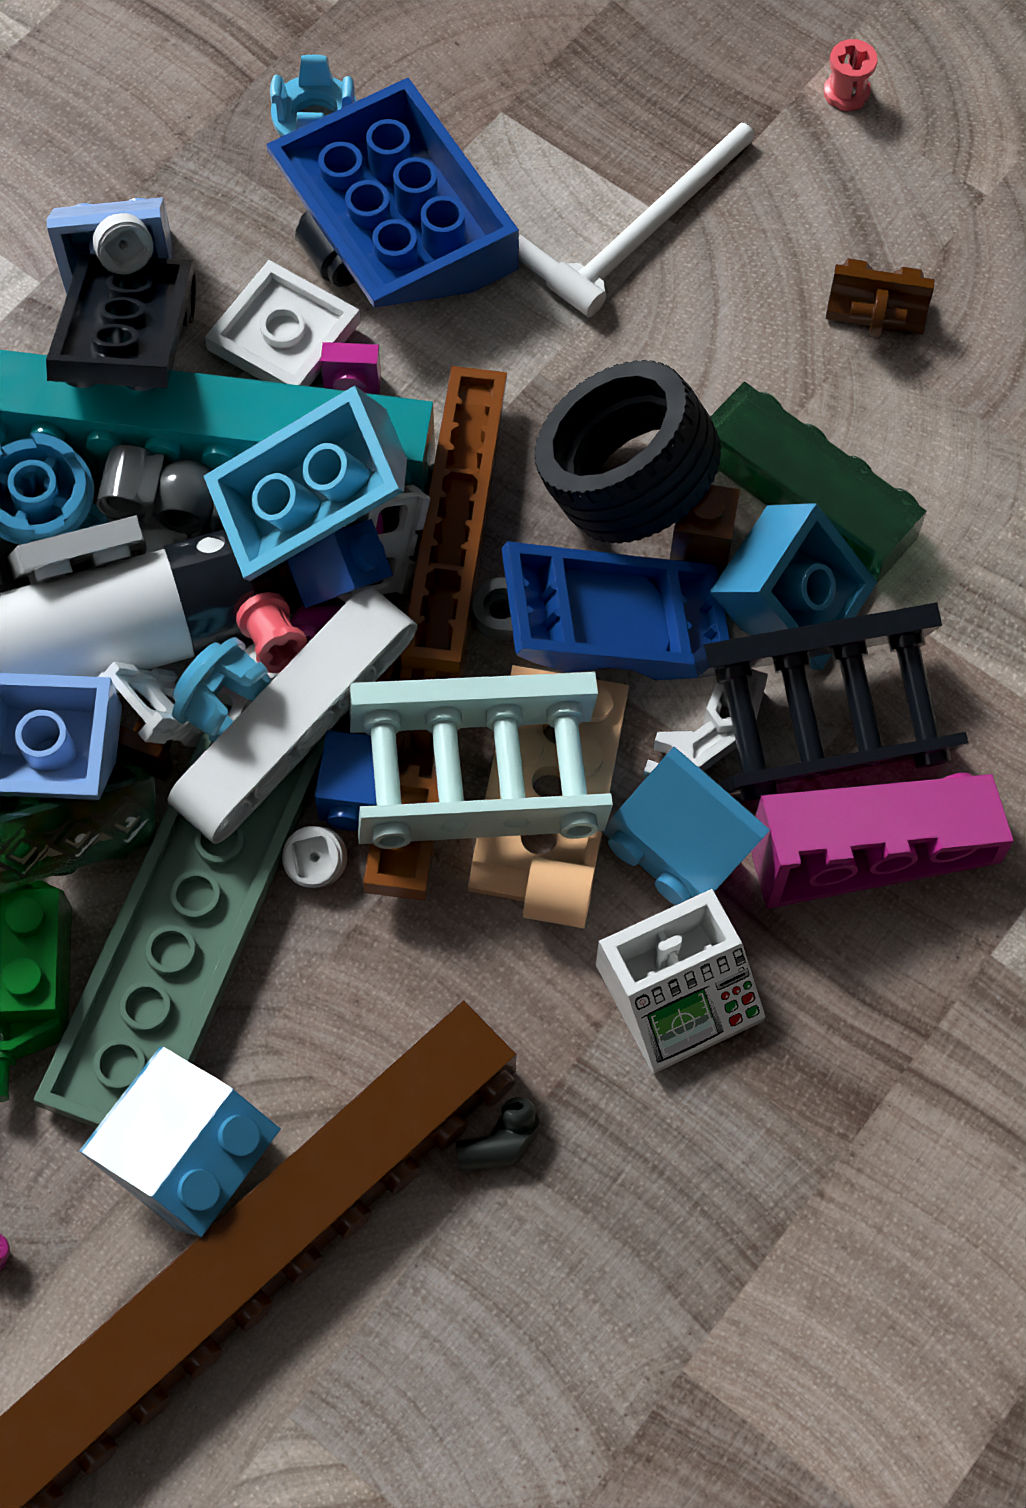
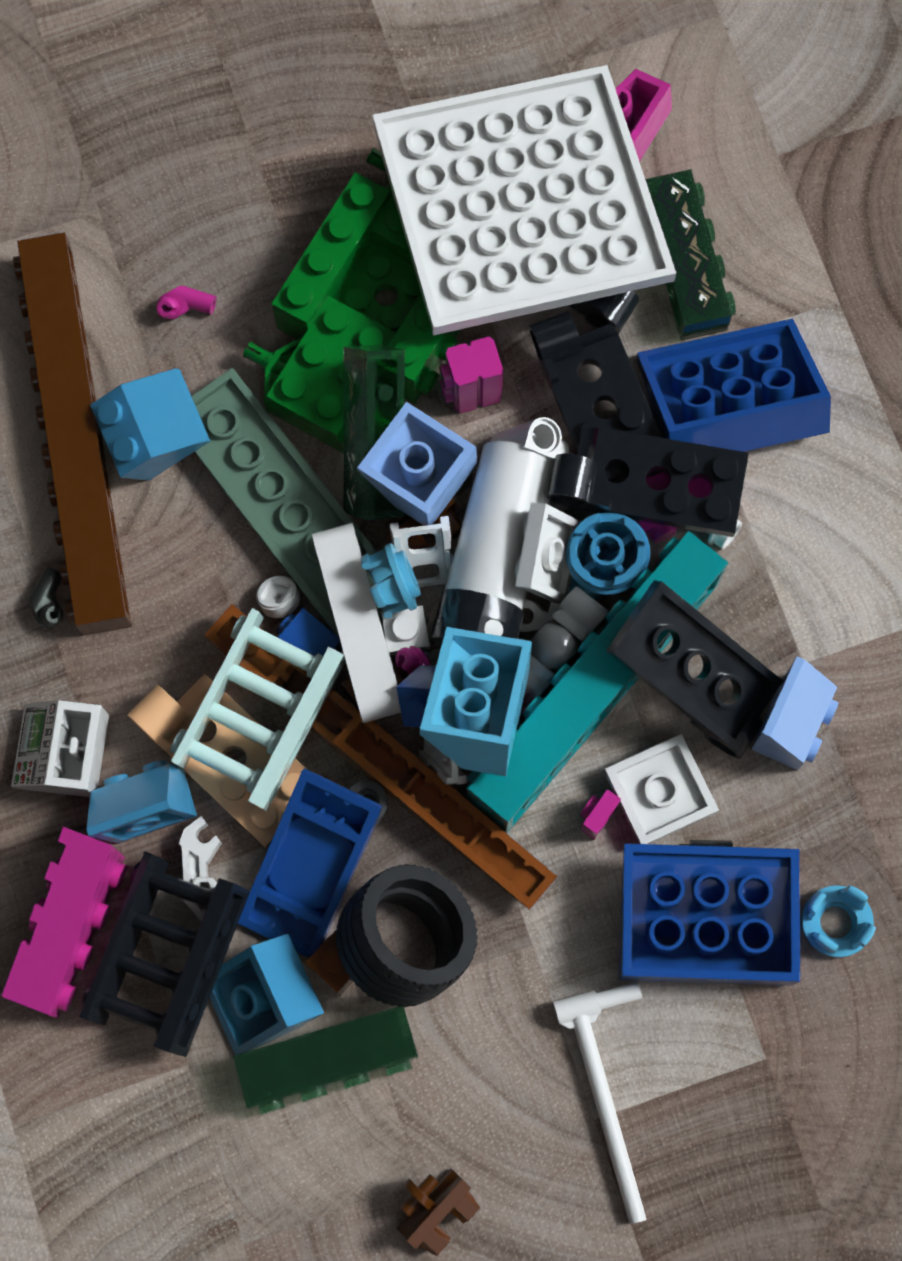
camera: 125 degrees right, 10 degrees up
(123, 243) = (757, 699): white tile -> none
(268, 624) = (413, 634): coral bush -> none

